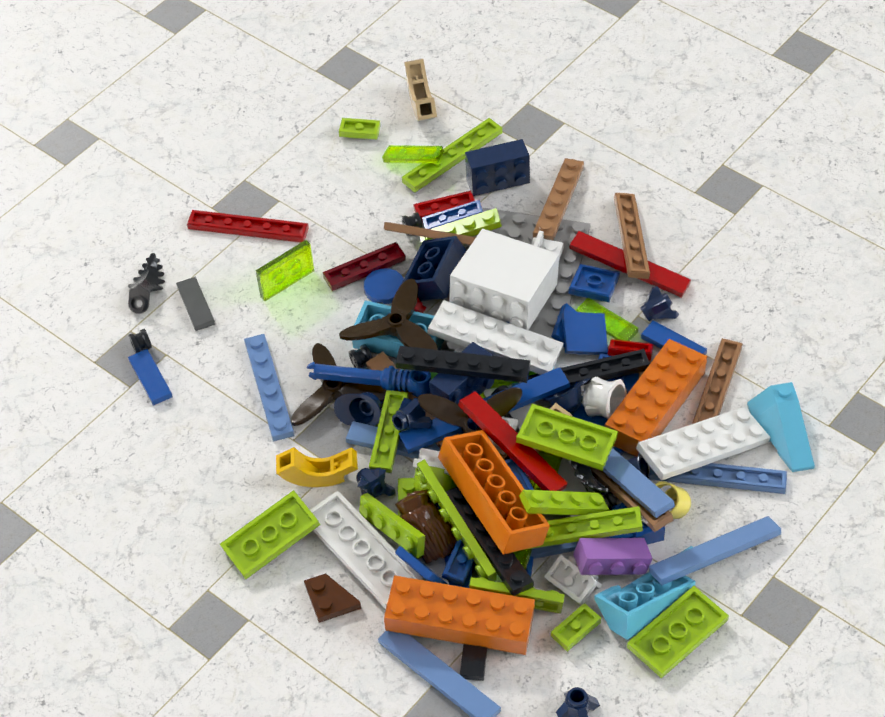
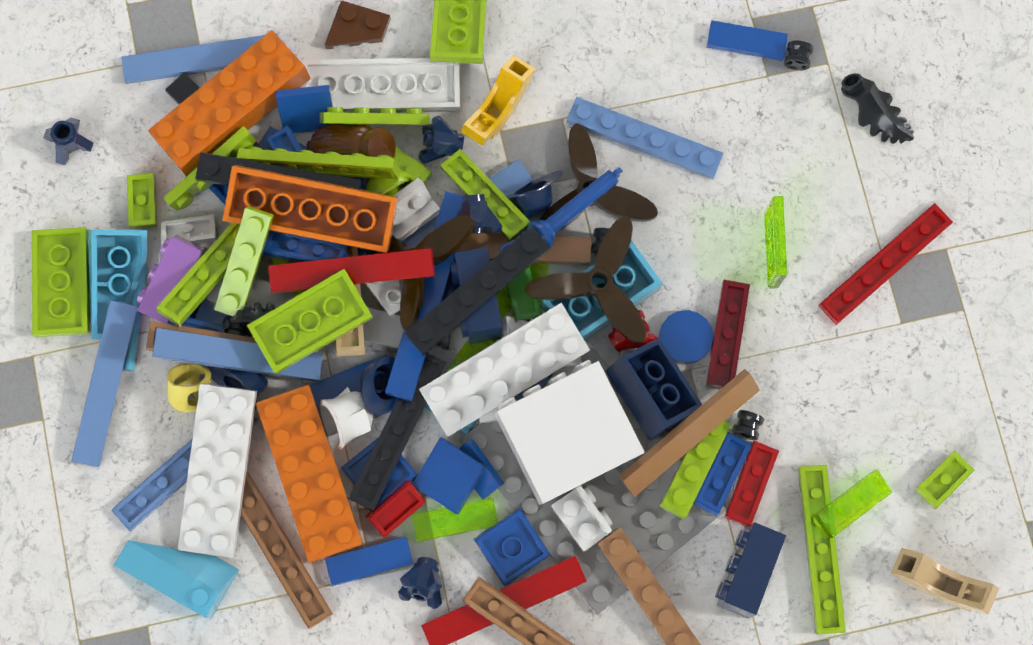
camera: 120 degrees right, 25 degrees up
(195, 303) = (813, 141): dark grey tile -> none

